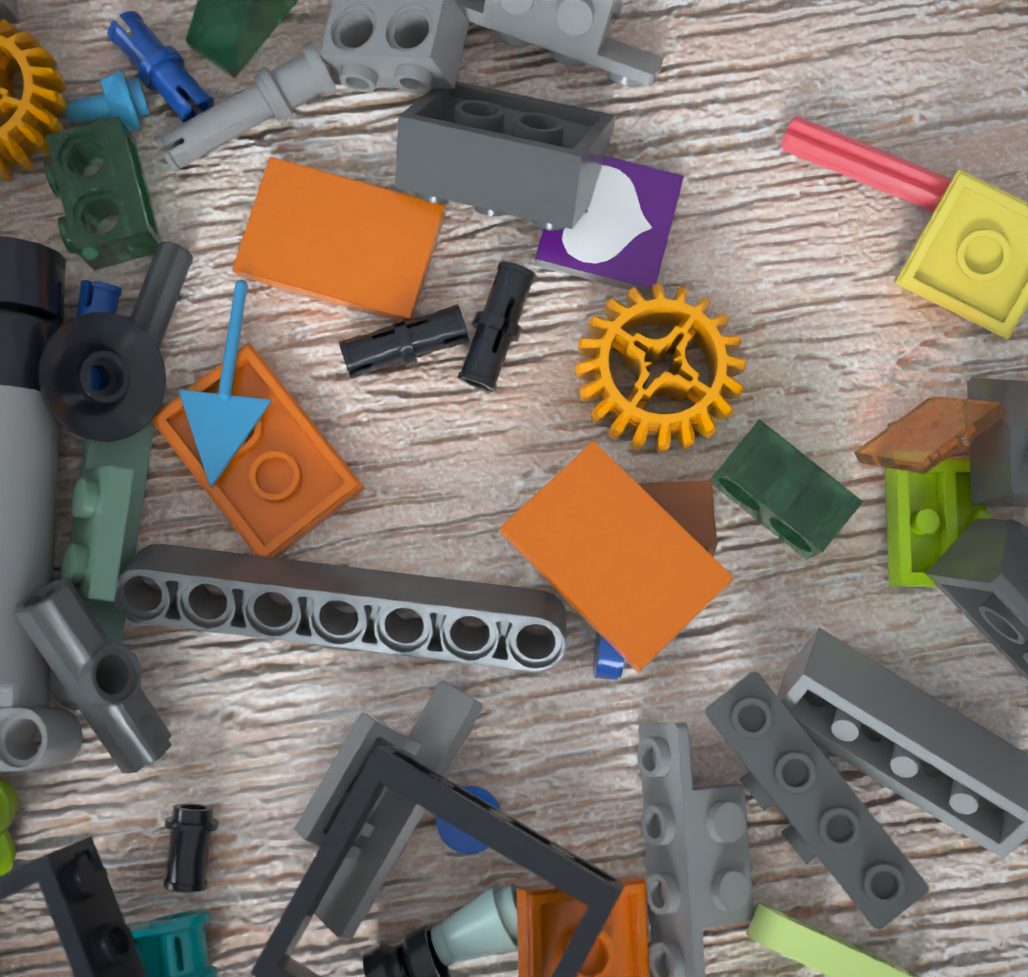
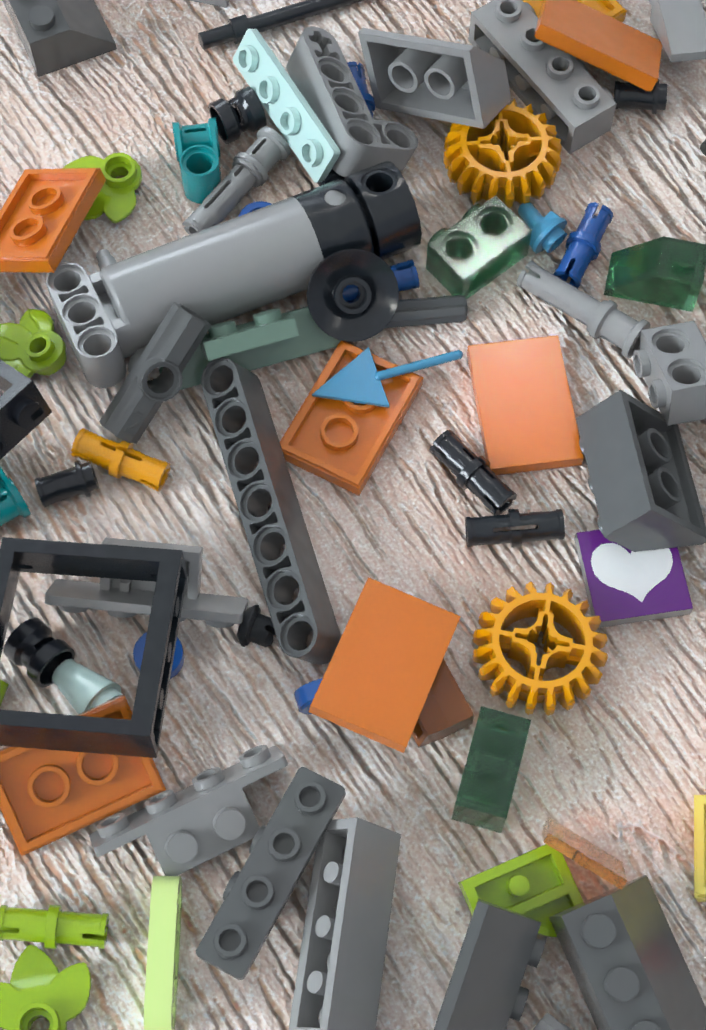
camera: 65 degrees right, 15 degrees down
(185, 765) = (120, 459): none -> light orange pin
(487, 687) = (255, 628): none -> black piece

